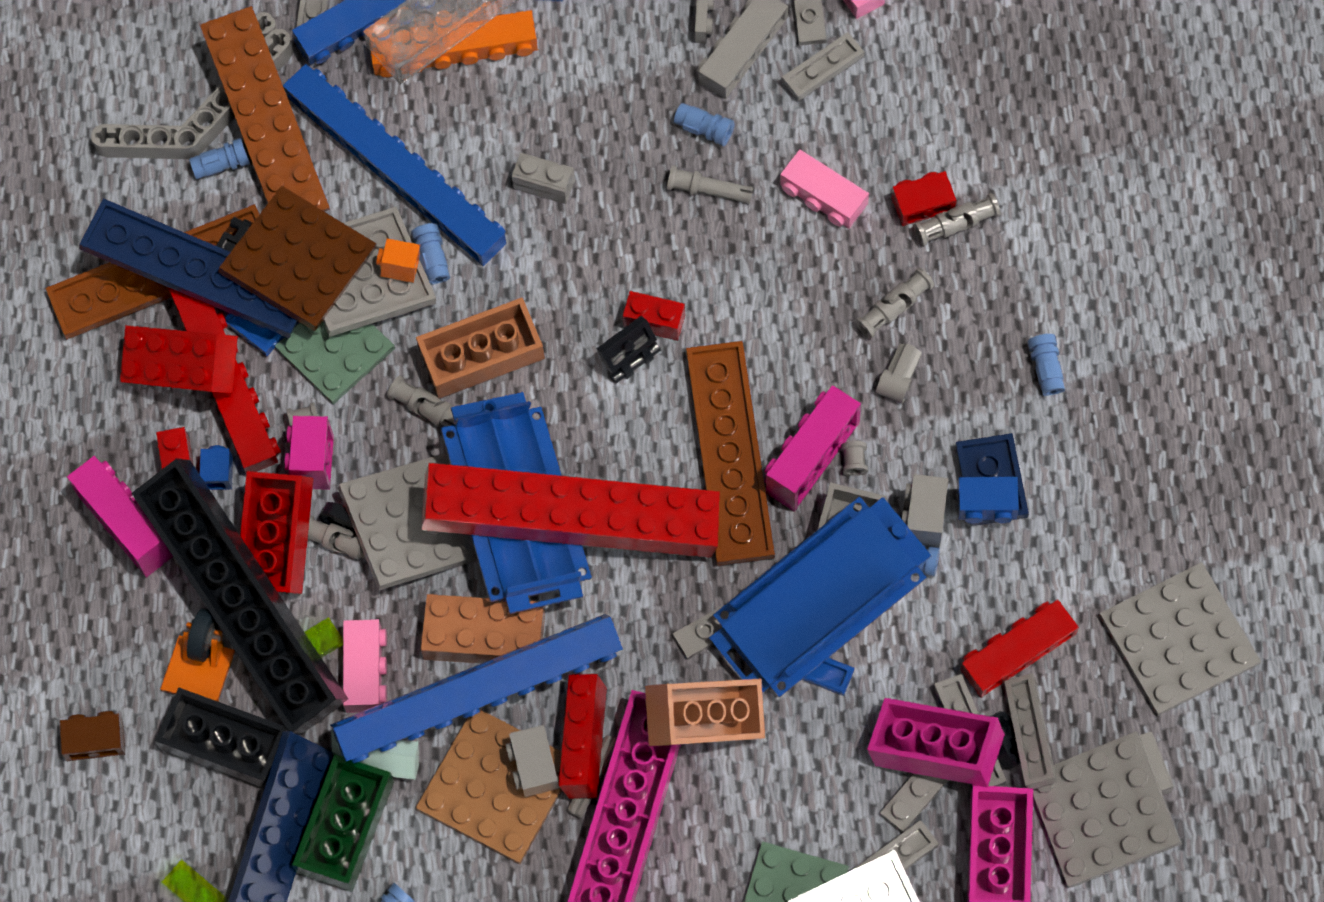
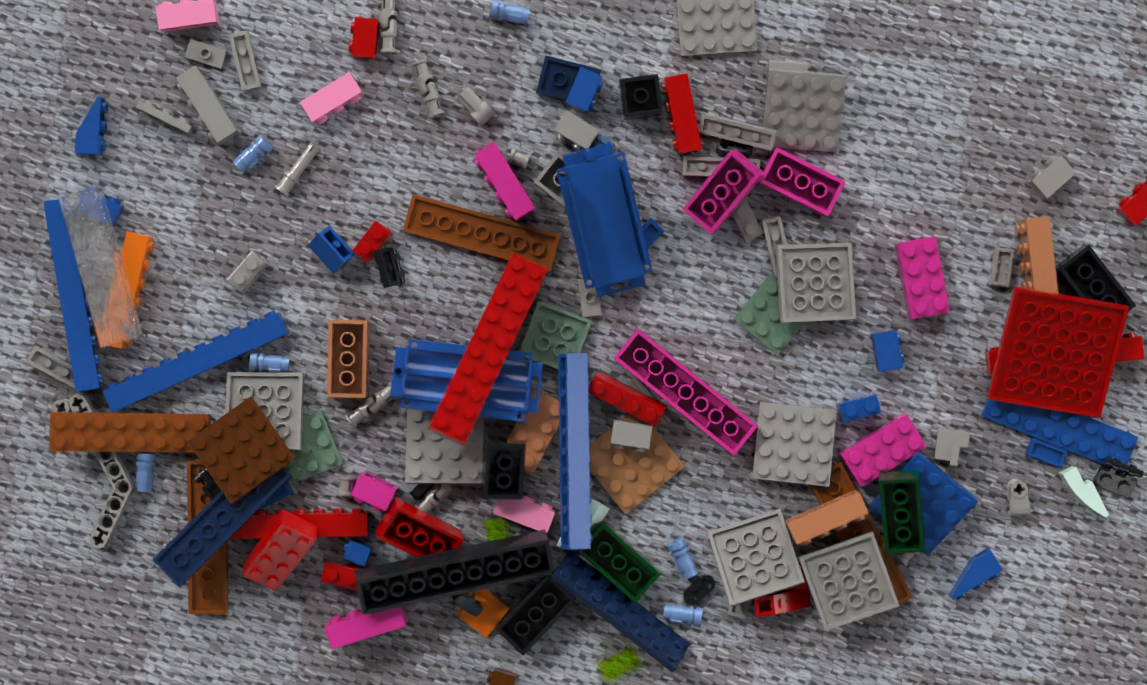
camera: 70 degrees left, 20 degrees up
(399, 260) = (269, 386): orange brick -> none
(409, 600) = (503, 471): none -> black slope
(619, 267) = (331, 249): none -> blue brick
(636, 601) = (554, 333): none -> sand green plate
(704, 712) = (649, 321): nougat brick -> none
(1015, 580) = (640, 97): none -> black brick

